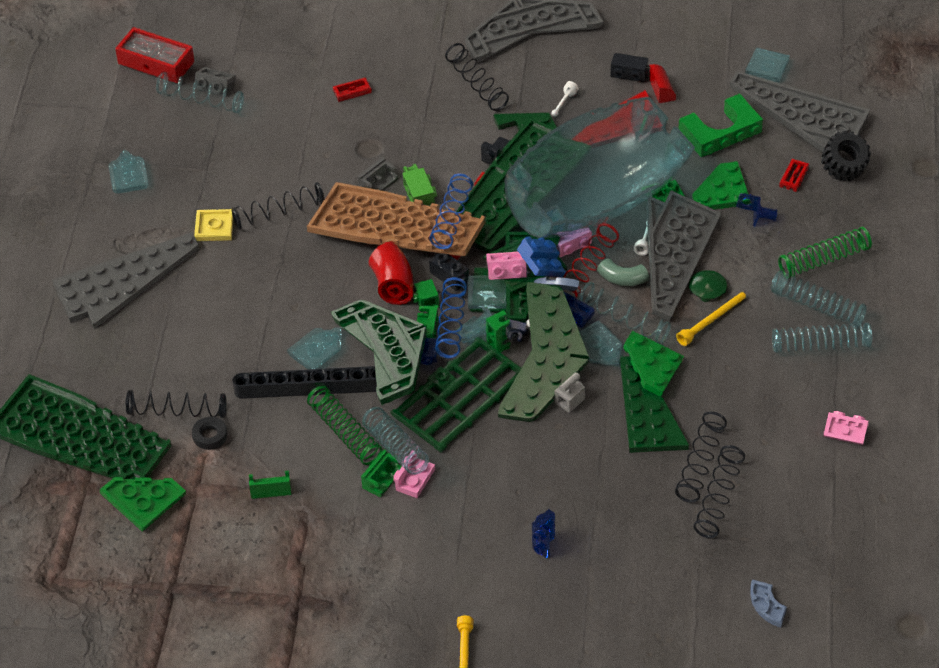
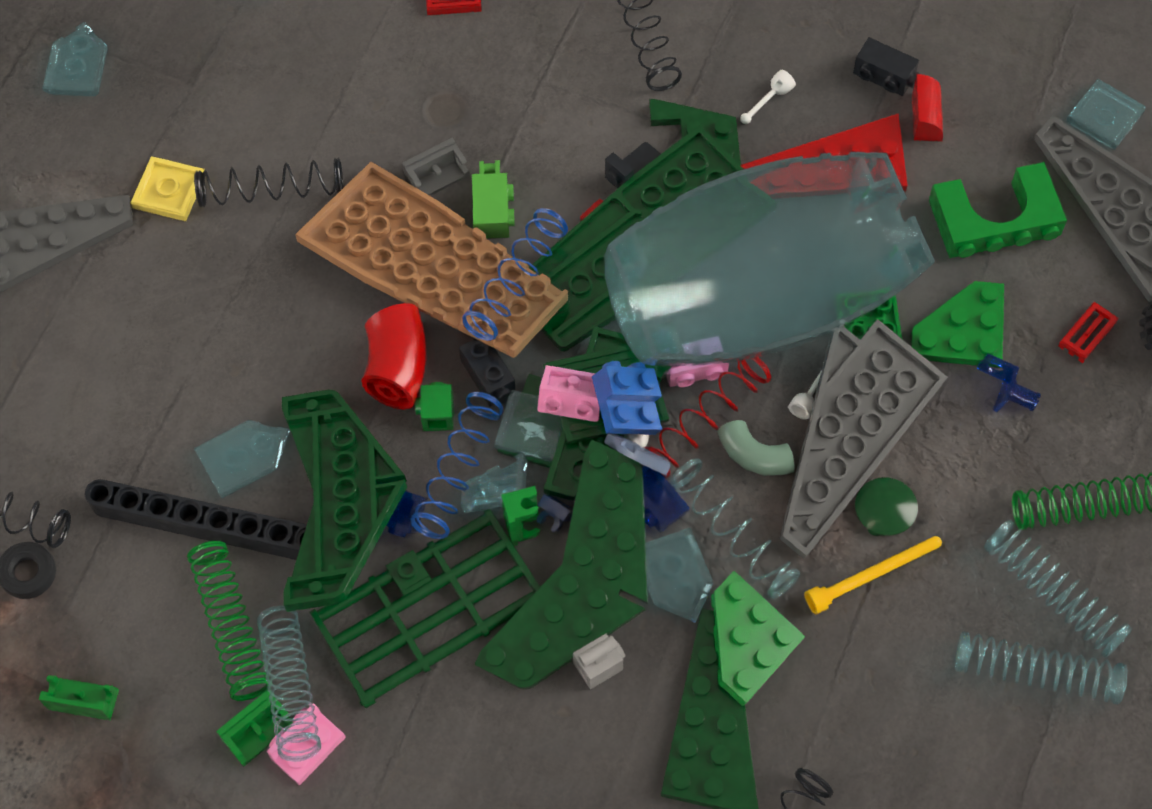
camera: 15 degrees right, 15 degrees up
(429, 319) = (422, 459): green hinge -> none

